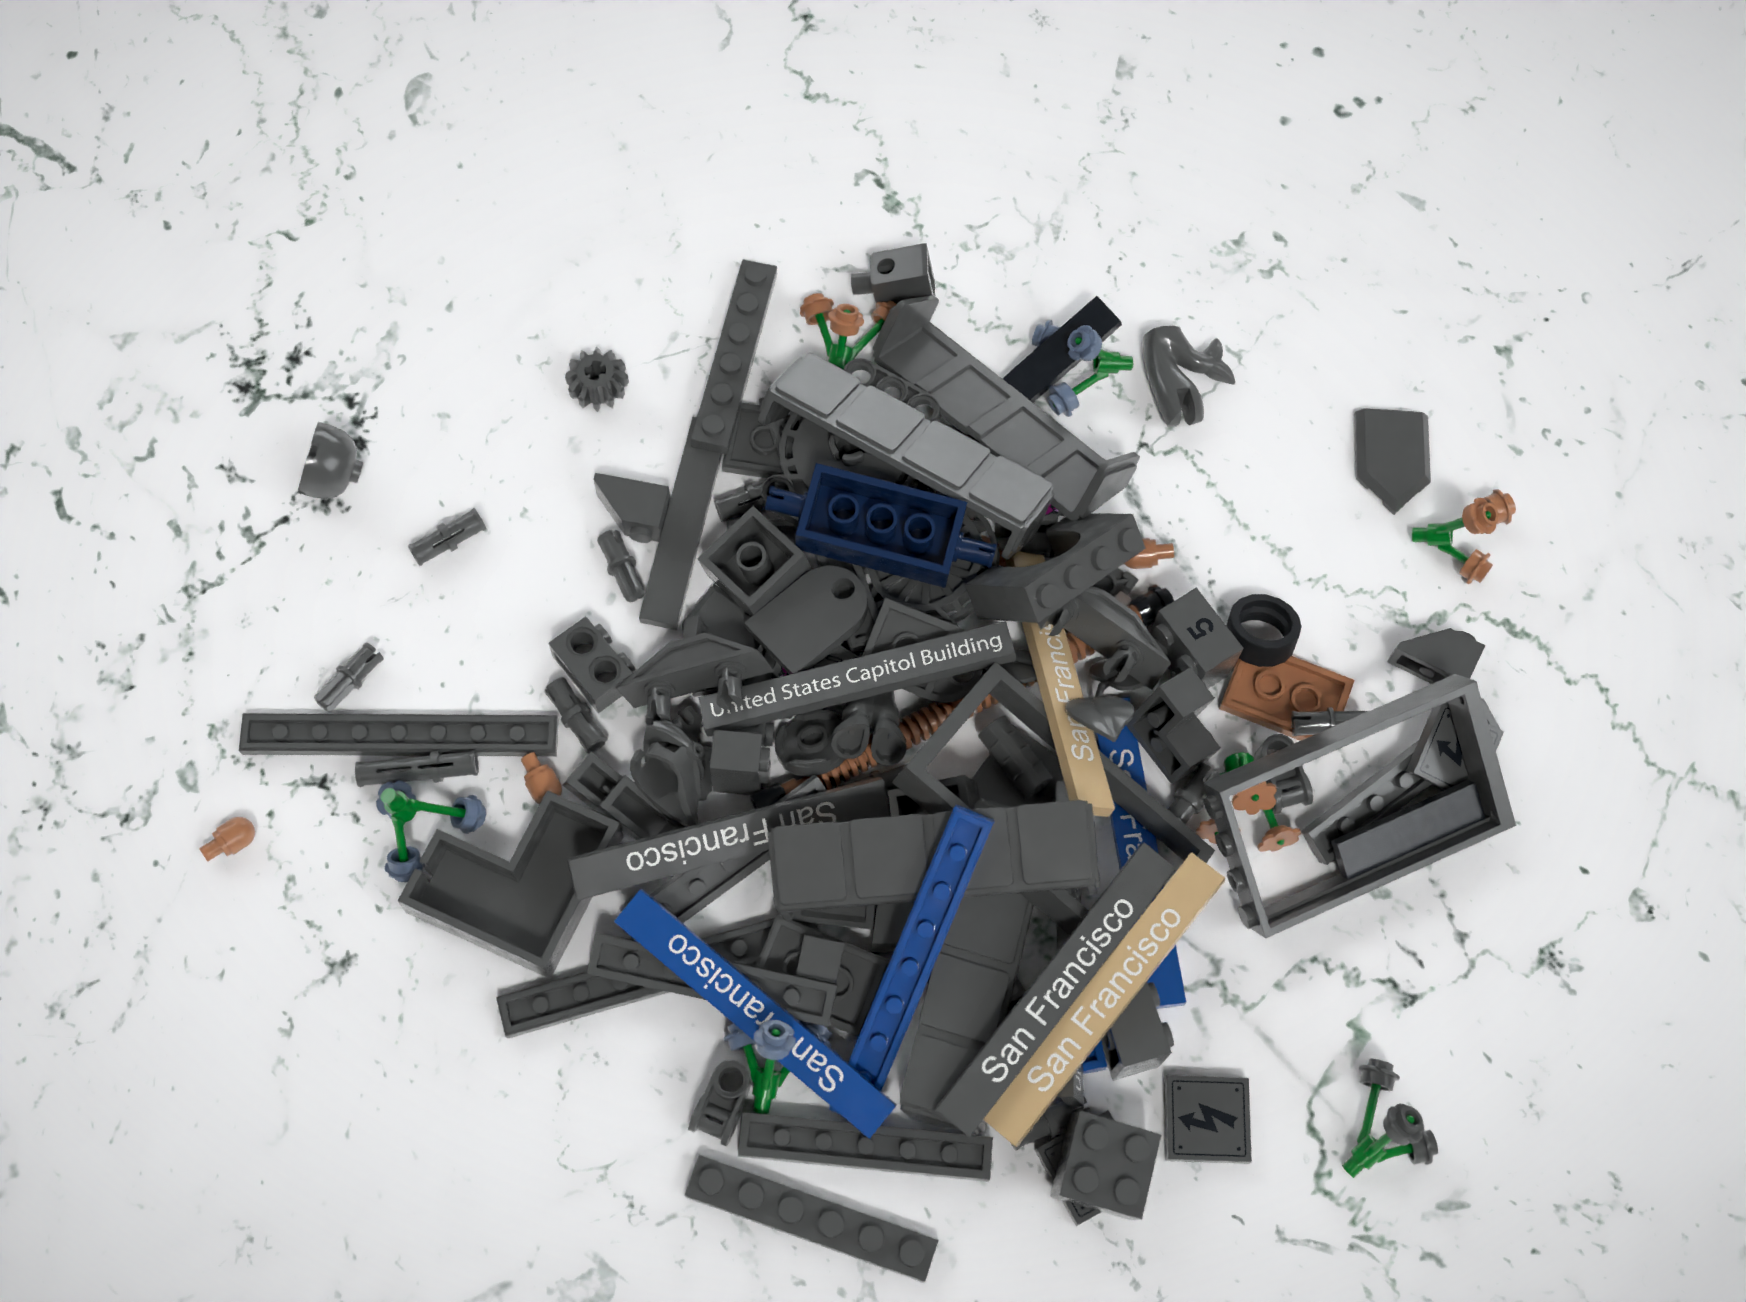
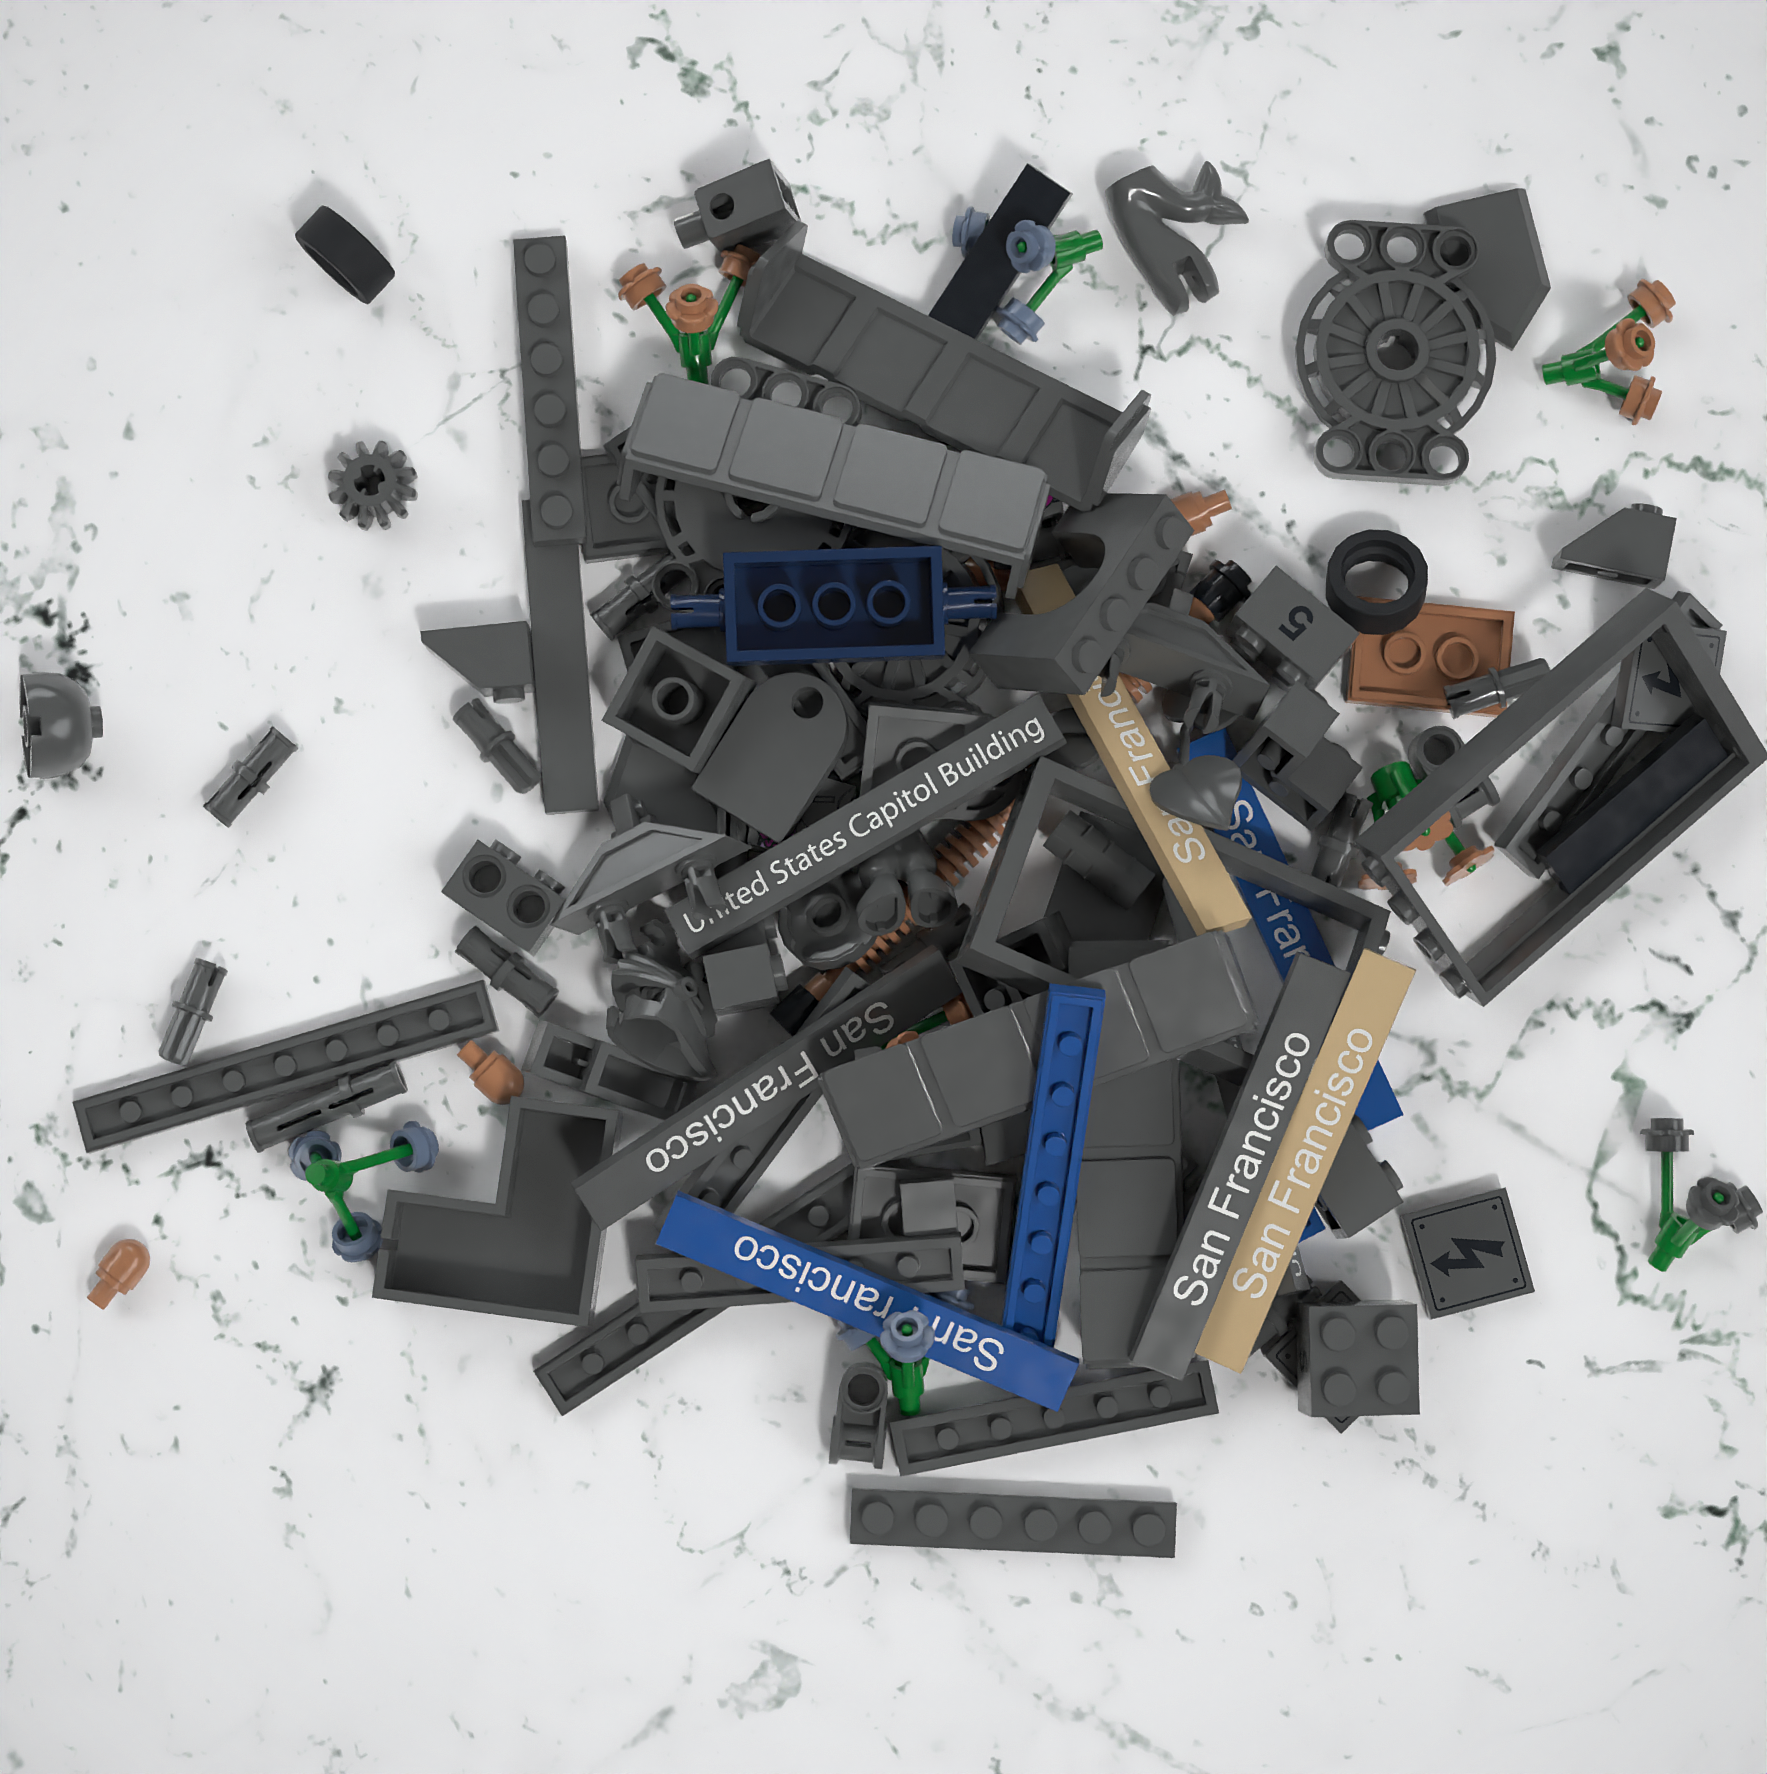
camera: 10 degrees left, 15 degrees up
(629, 233) = (345, 254): none -> black tyre
(1345, 479) = (1430, 323): none -> dark grey piece

